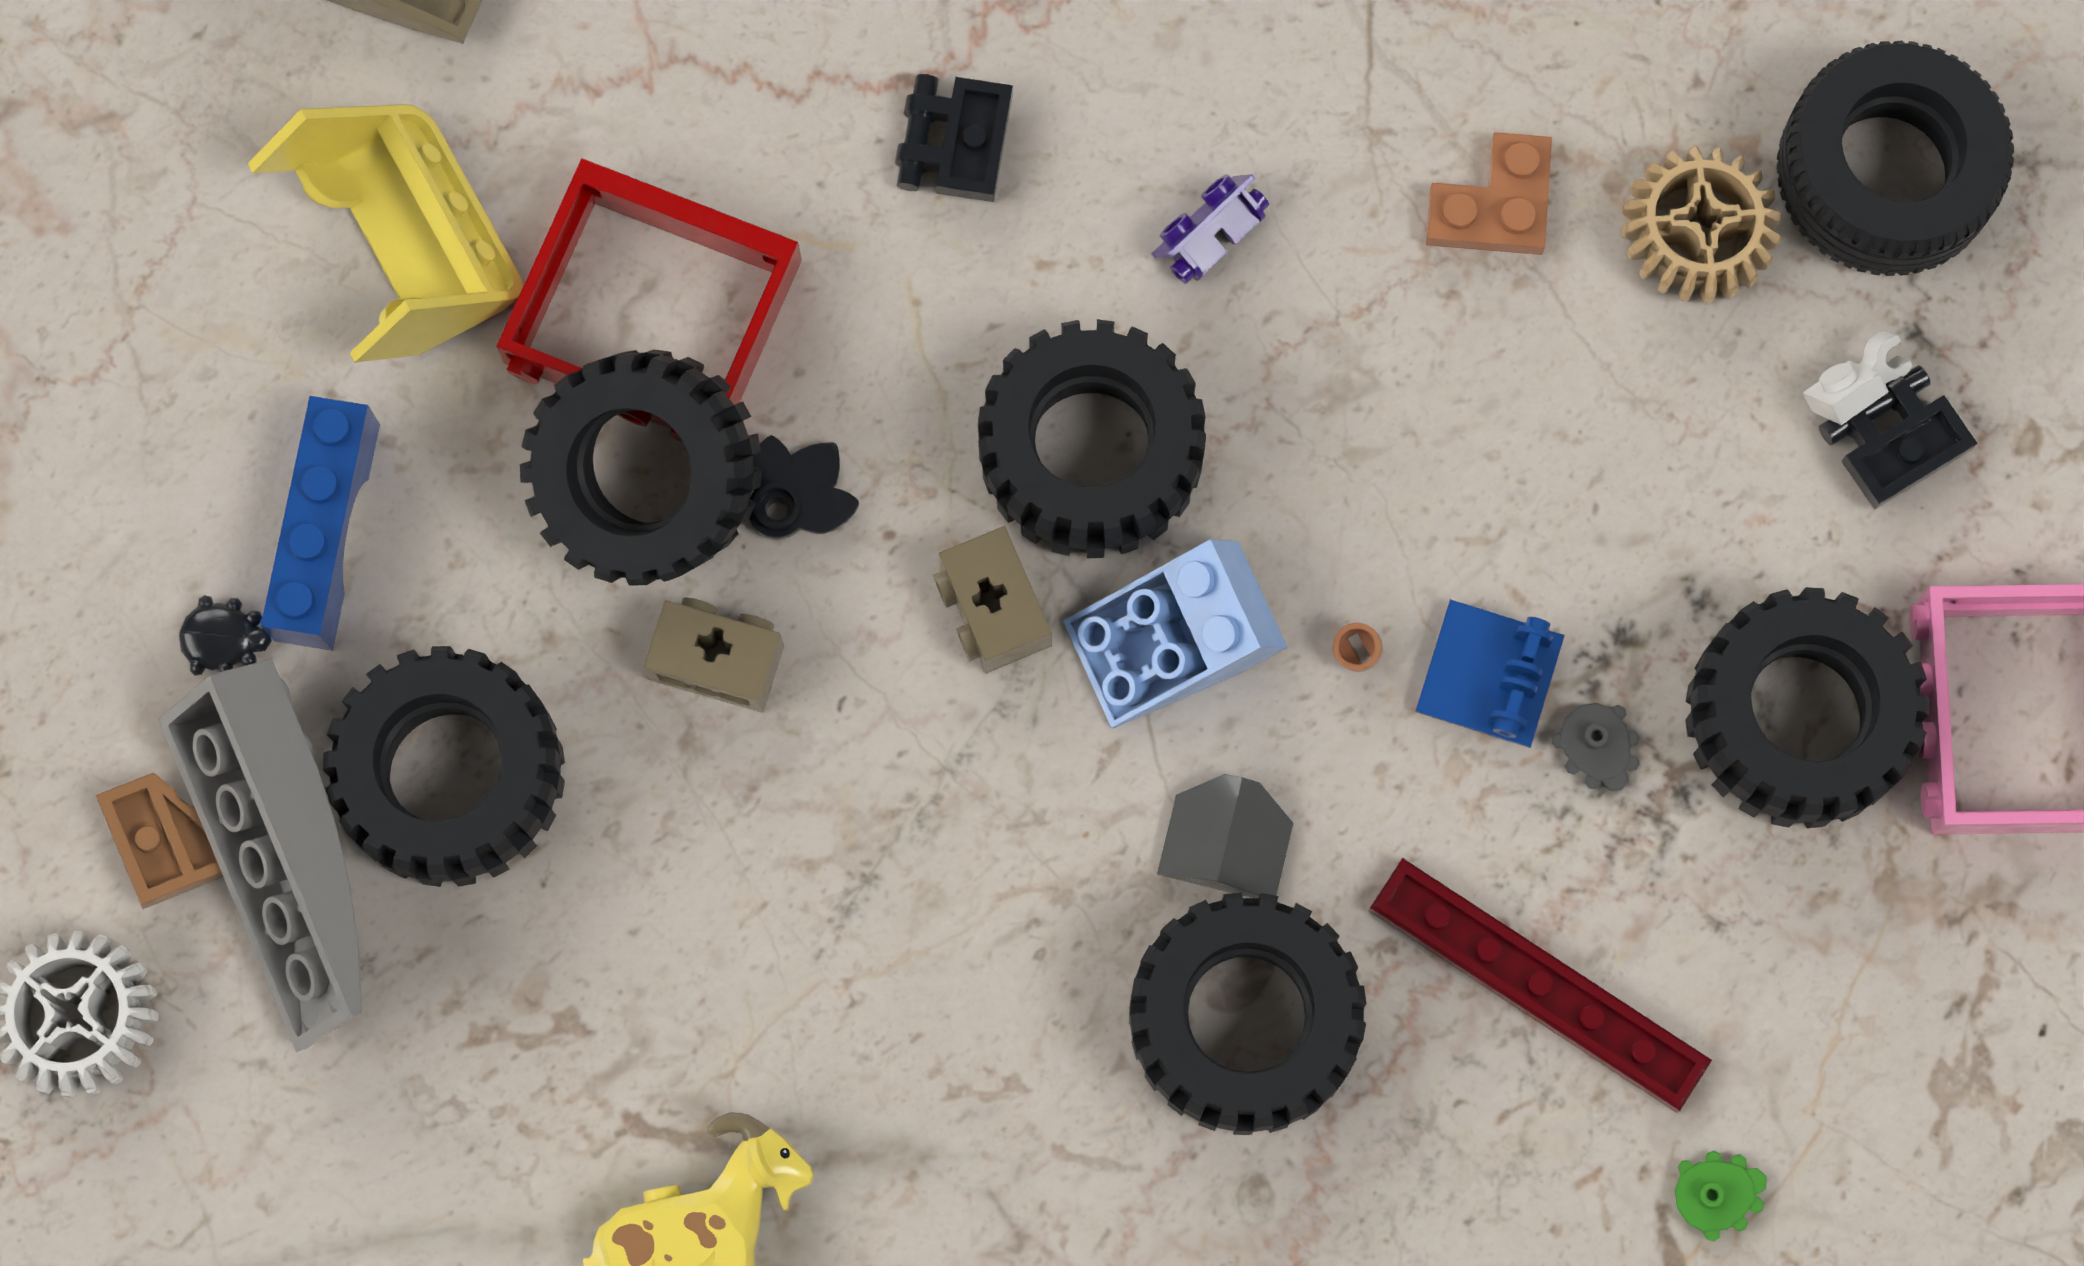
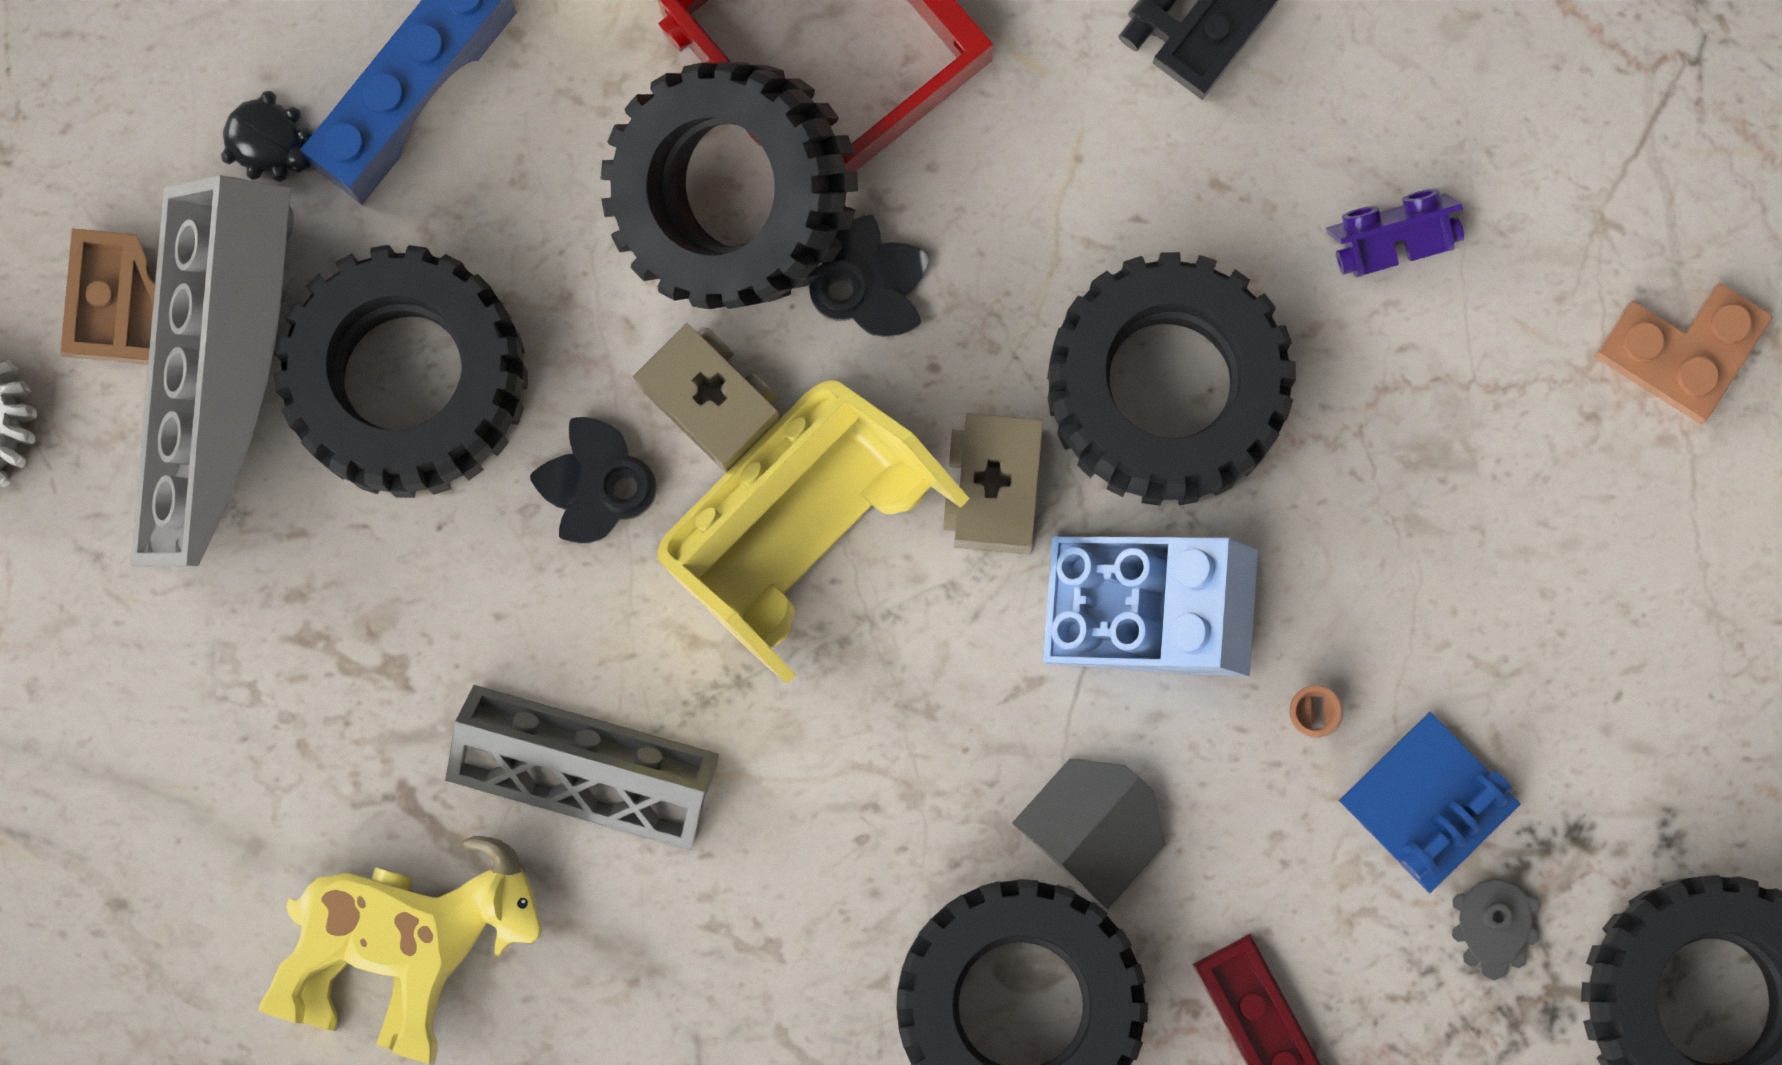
camera: 30 degrees right, 5 degrees up
(647, 776) = (586, 482): none -> black plate
(766, 1000) = (581, 755): none -> dark grey fence
(832, 705) = (790, 505): none -> light yellow windscreen

